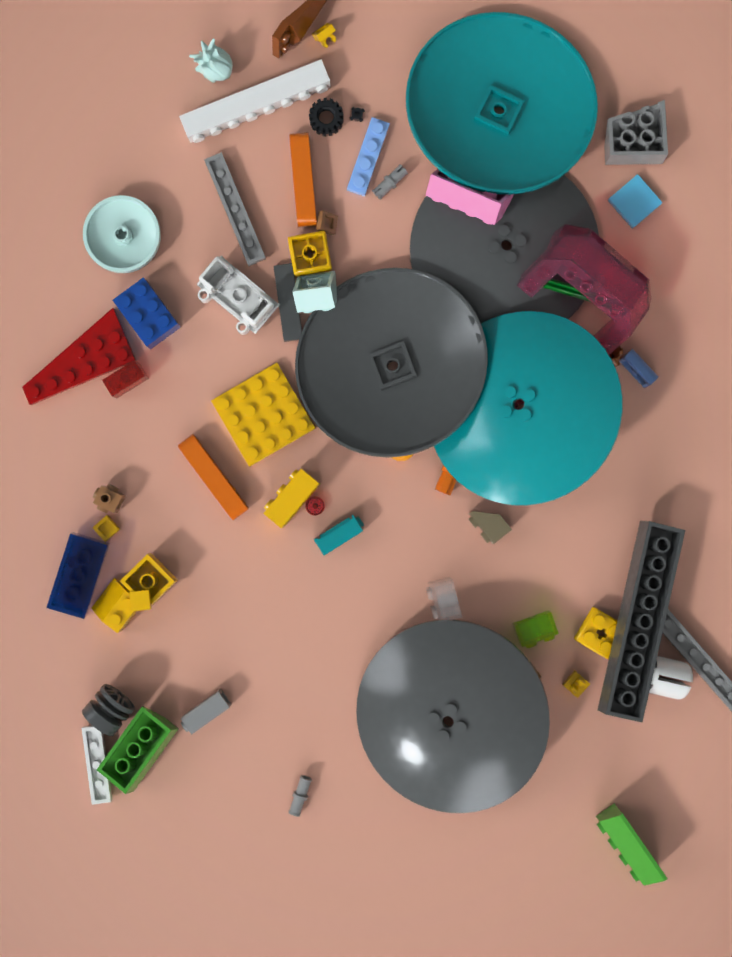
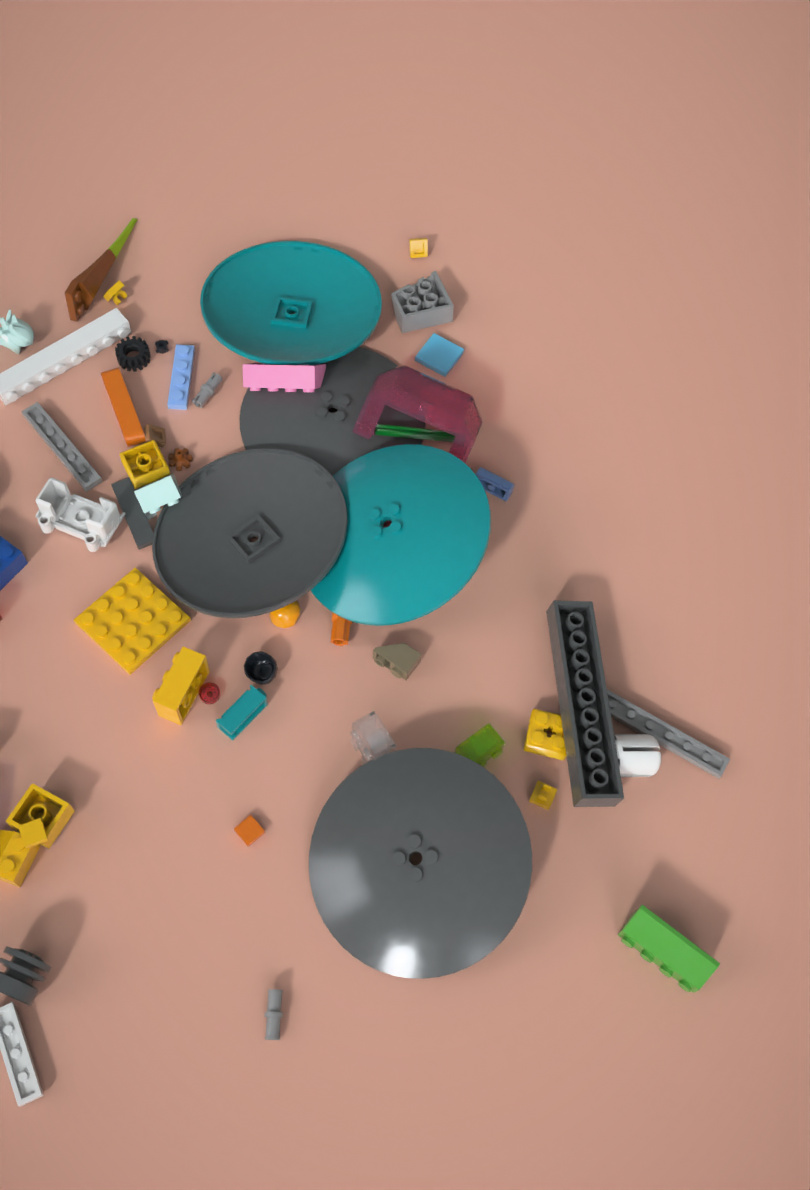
camera: 25 degrees left, 25 degrees down
(137, 749) = (63, 1016): bright green slope -> none
(205, 712) = (137, 947): light grey brick -> none
(213, 477) = (92, 692): orange beam -> none
(318, 640) = (249, 830): none -> orange tile
(345, 257) = (180, 458): none -> dark orange plant
(365, 499) = (260, 667): none -> black hair
(656, 59) = (418, 247): none -> yellow tile

